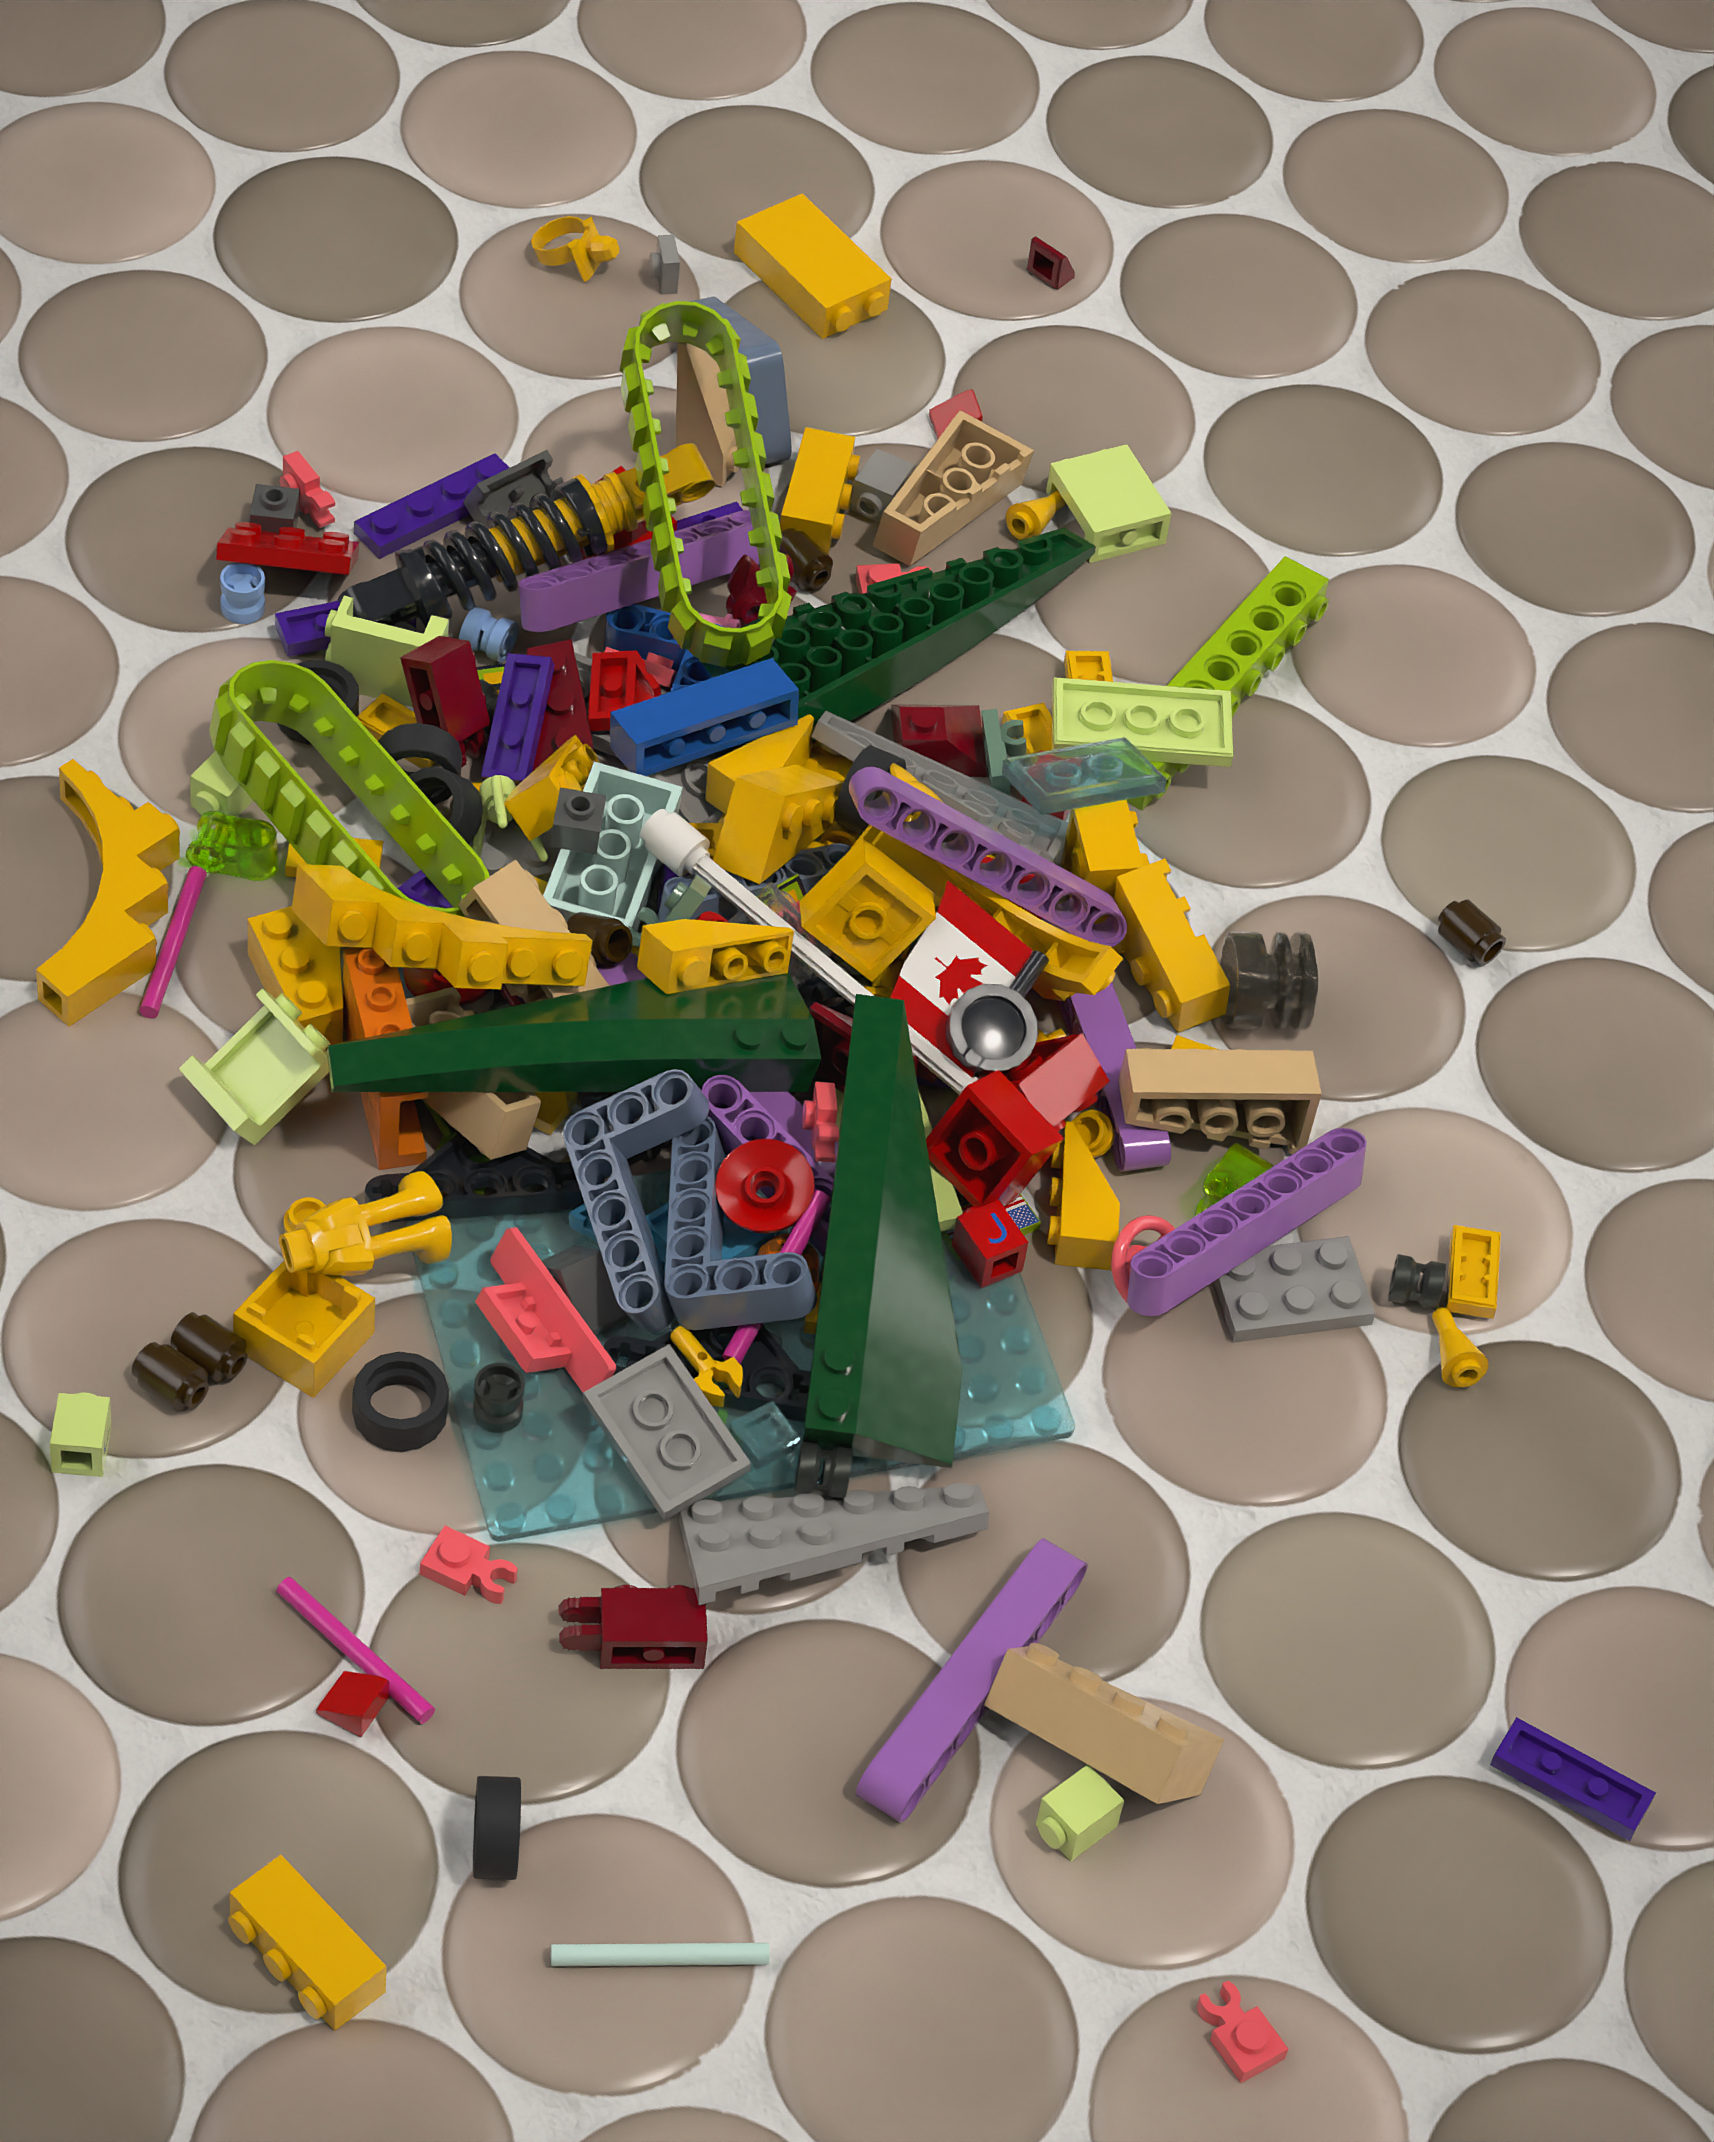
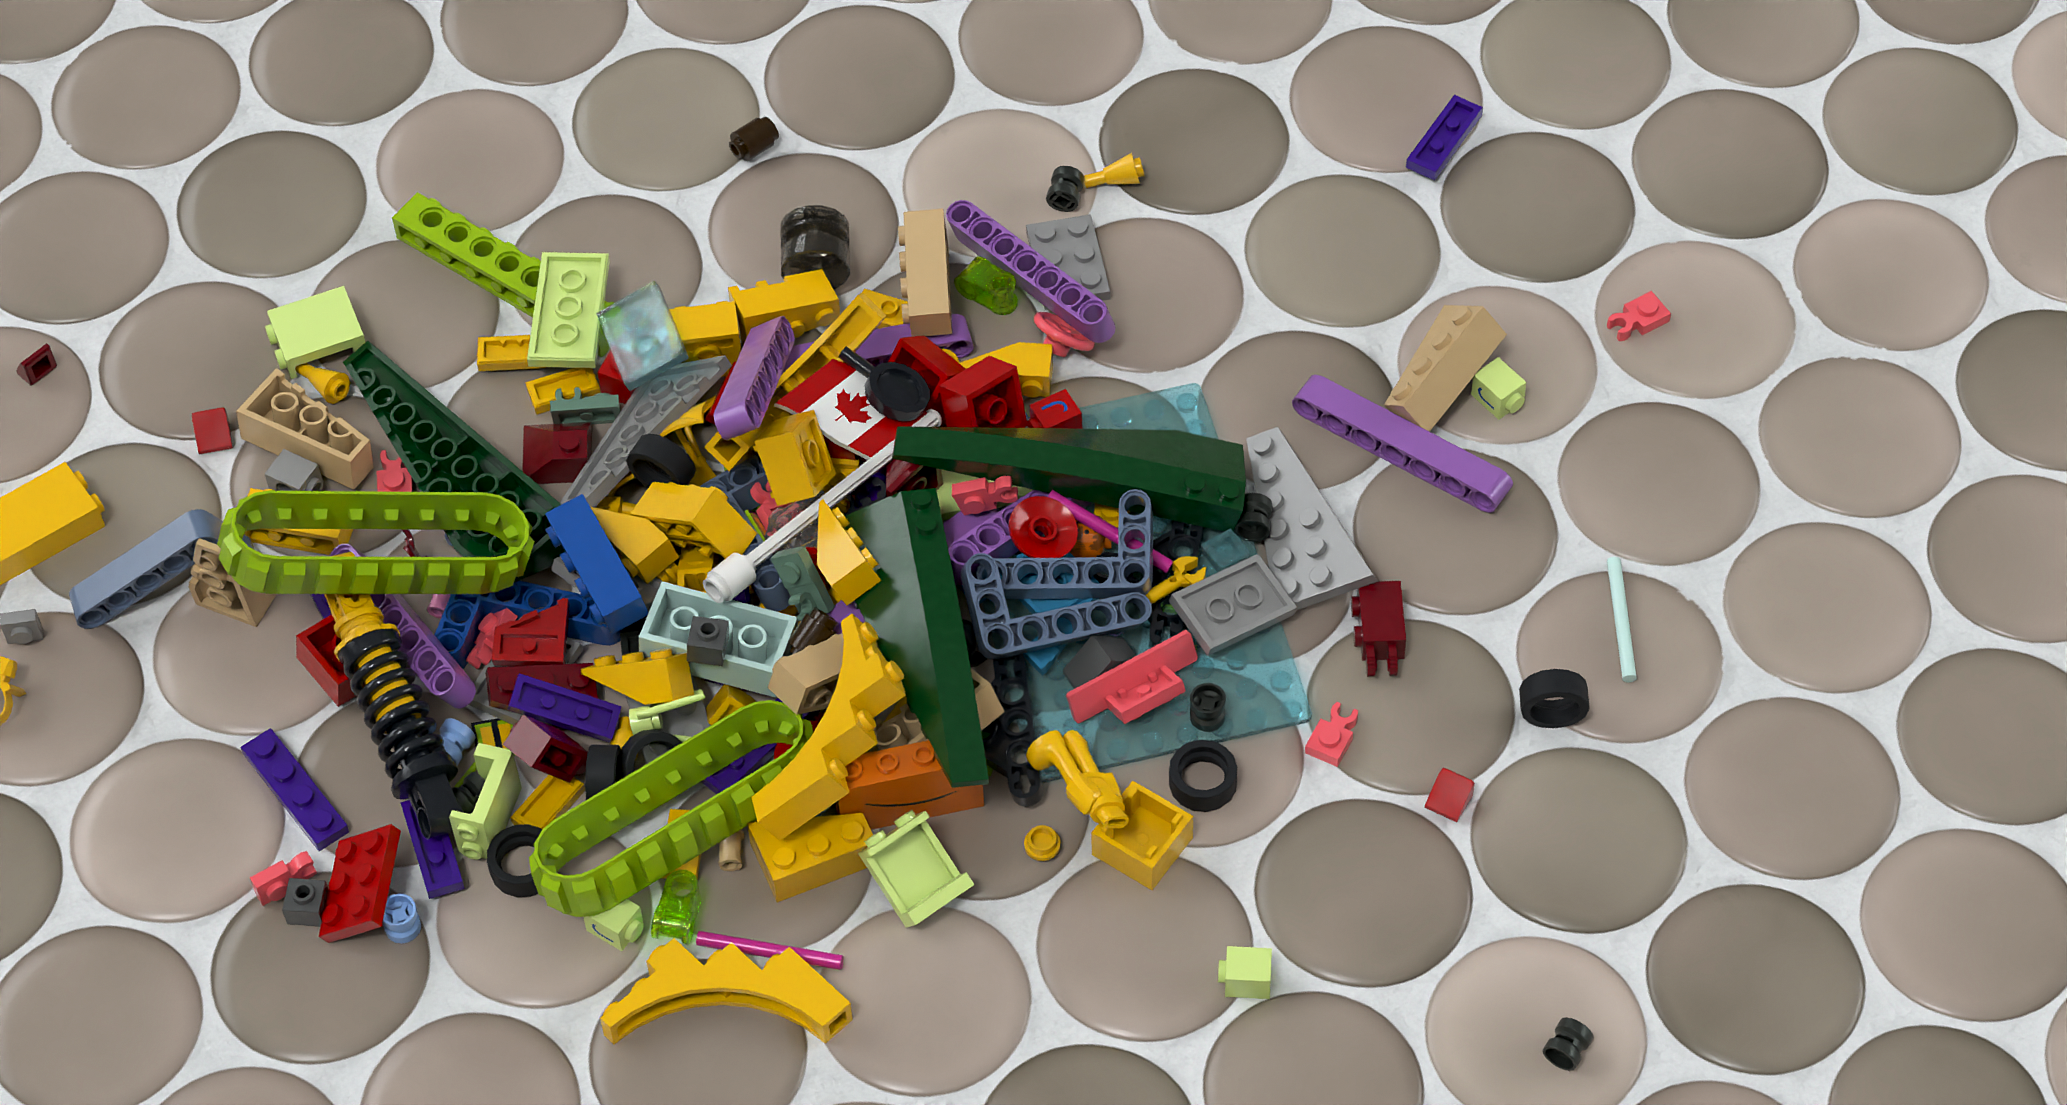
camera: 80 degrees left, 5 degrees up
(170, 1376) = (1191, 919): dark brown brick -> none
(210, 1346) = (1164, 896): dark brown brick -> none
(306, 1943) = (1644, 810): yellow brick -> none
(354, 1648) = (1405, 800): dark pink bar -> none
(511, 487) = (293, 730): dark grey hinge -> none
(809, 560) = (370, 540): dark brown brick -> none
(1473, 1271) = (1043, 157): yellow plate -> none

